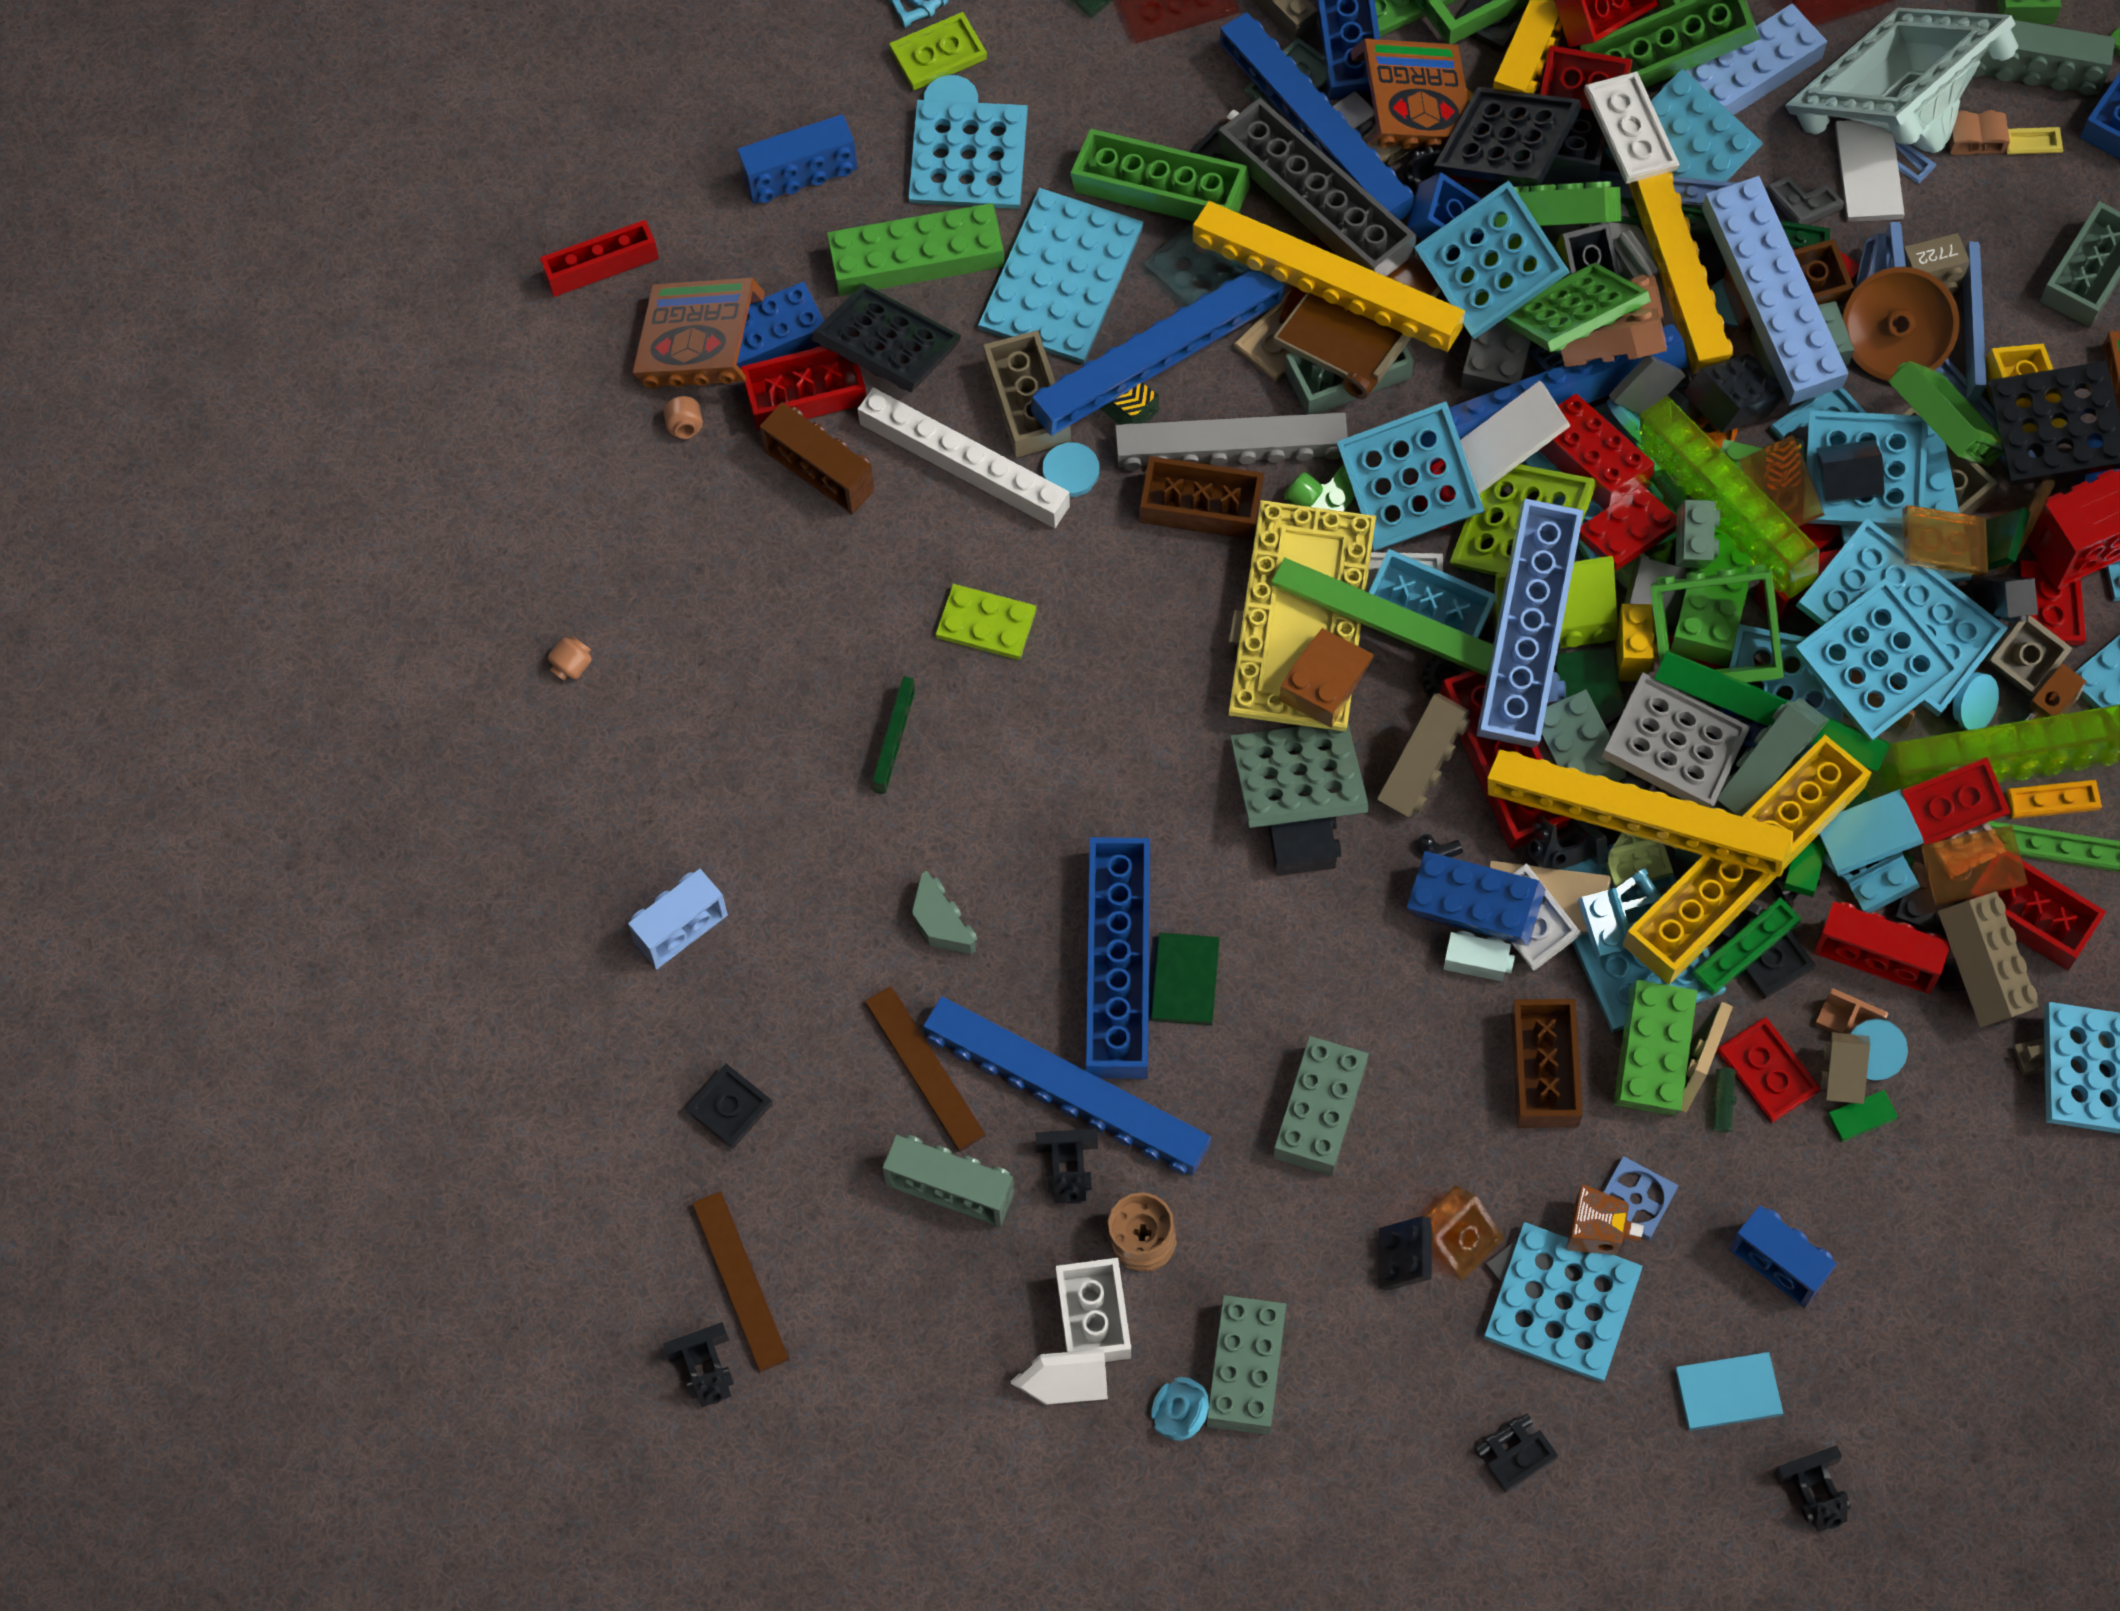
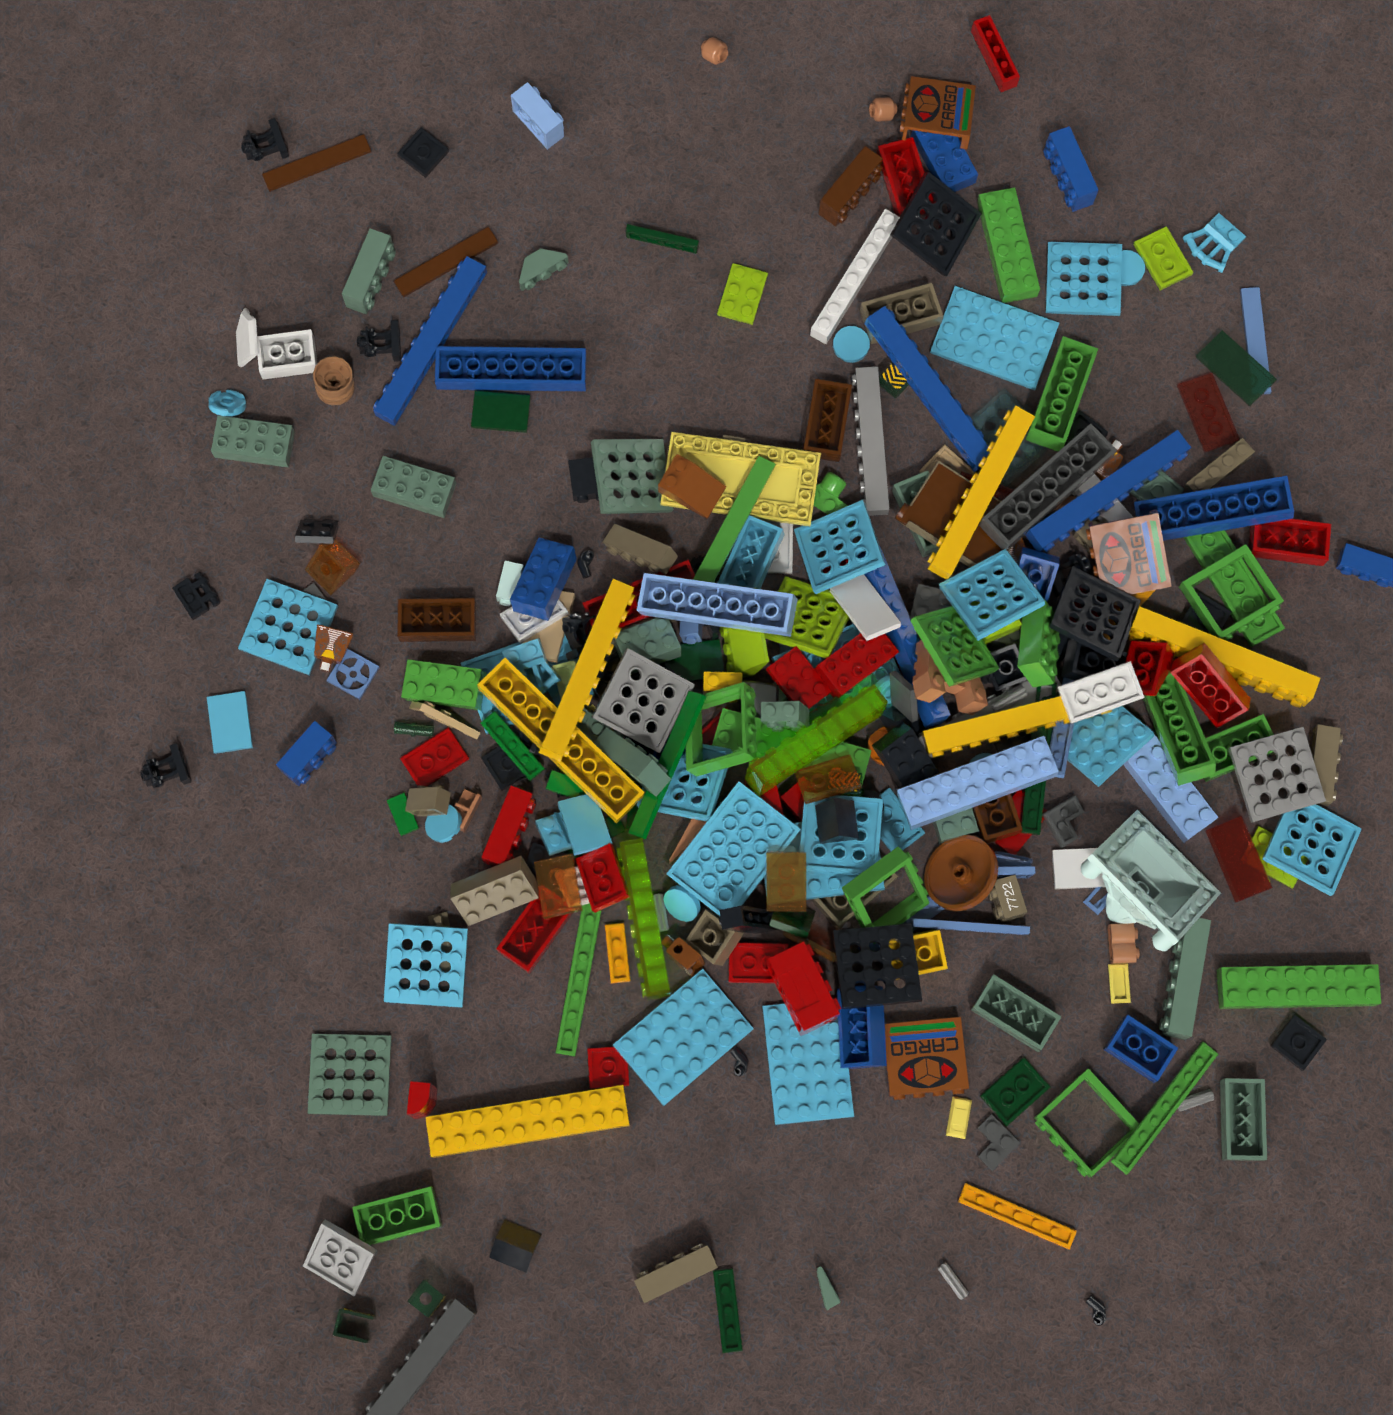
camera: 85 degrees right, 10 degrees up
(1857, 656) = (684, 828): medium azure piece -> none

